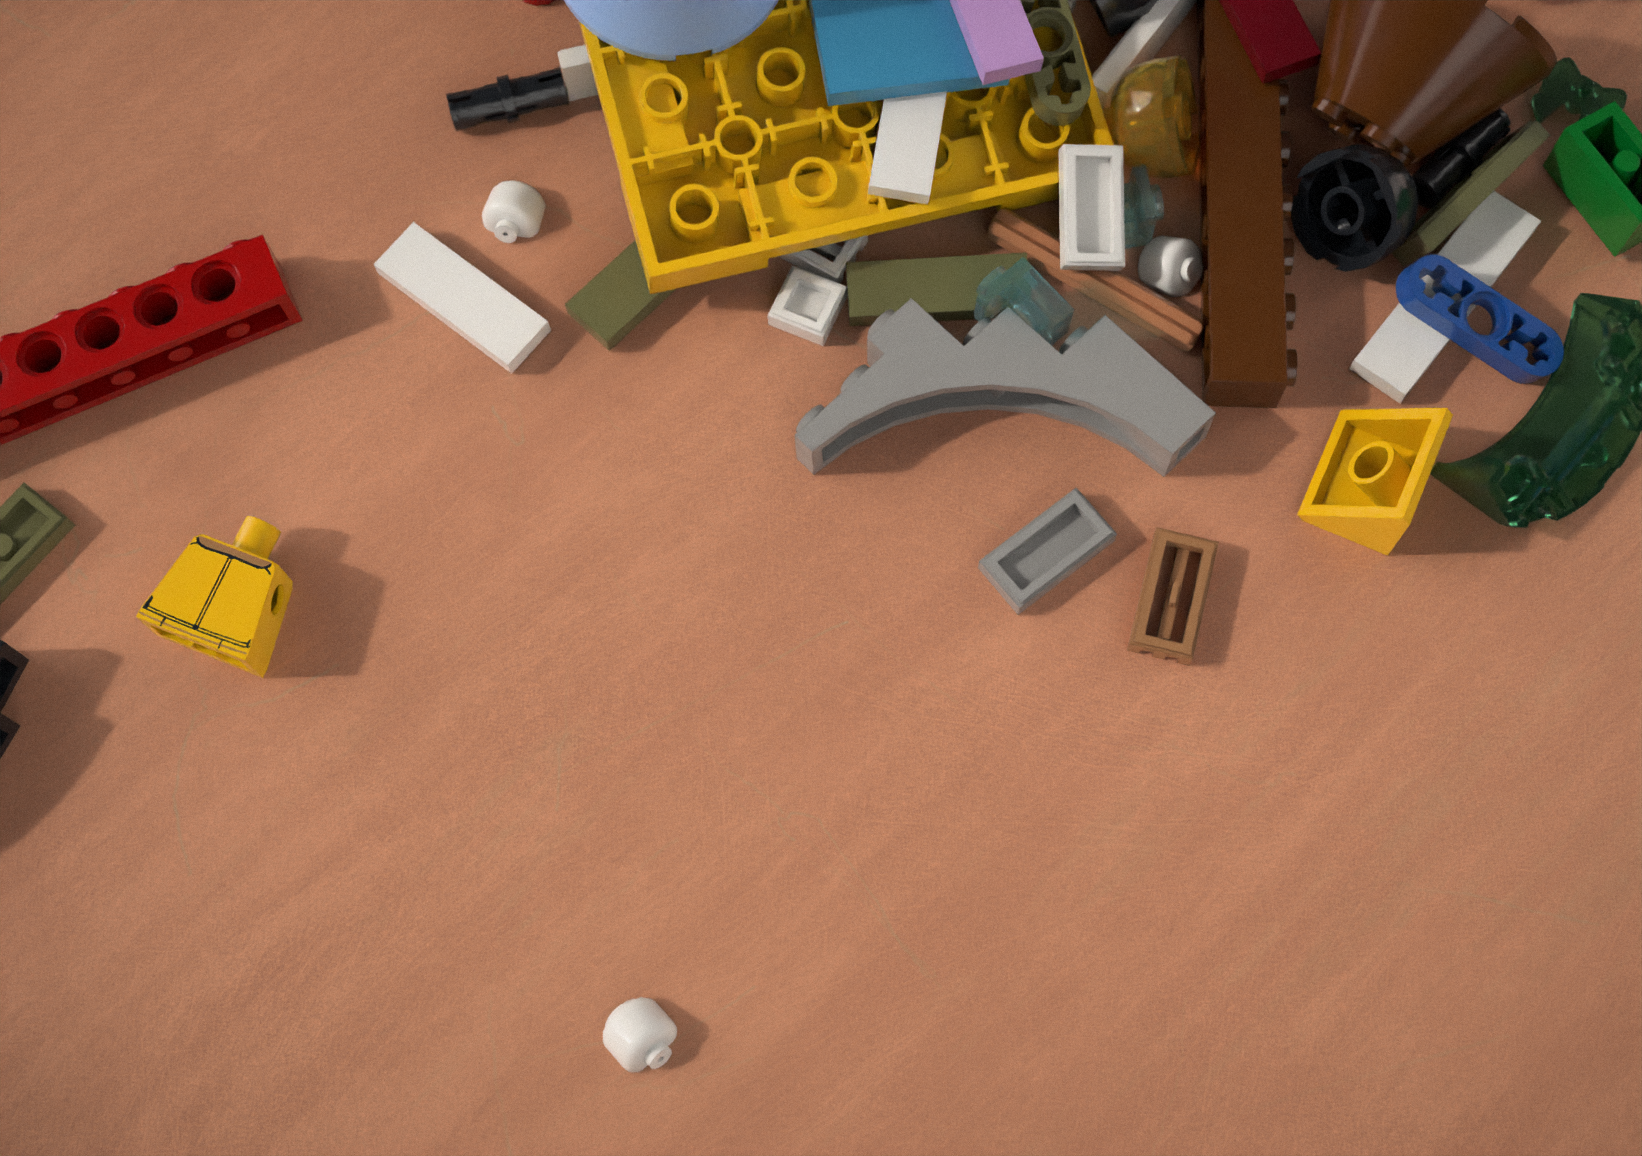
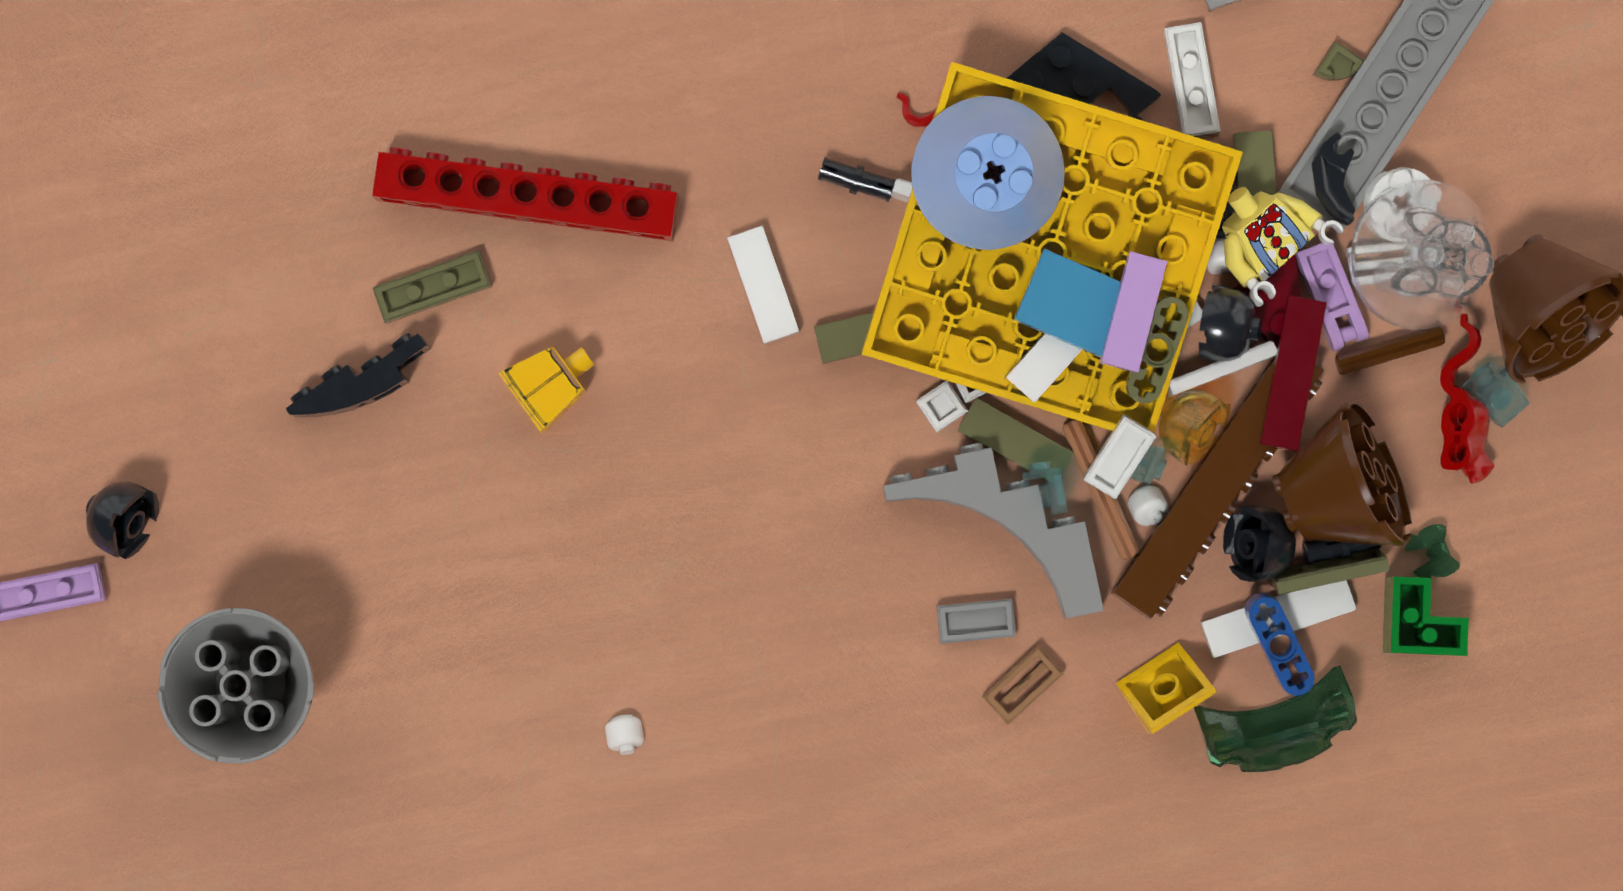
camera: 30 degrees right, 15 degrees up
(513, 211) = (820, 248): white piece -> none

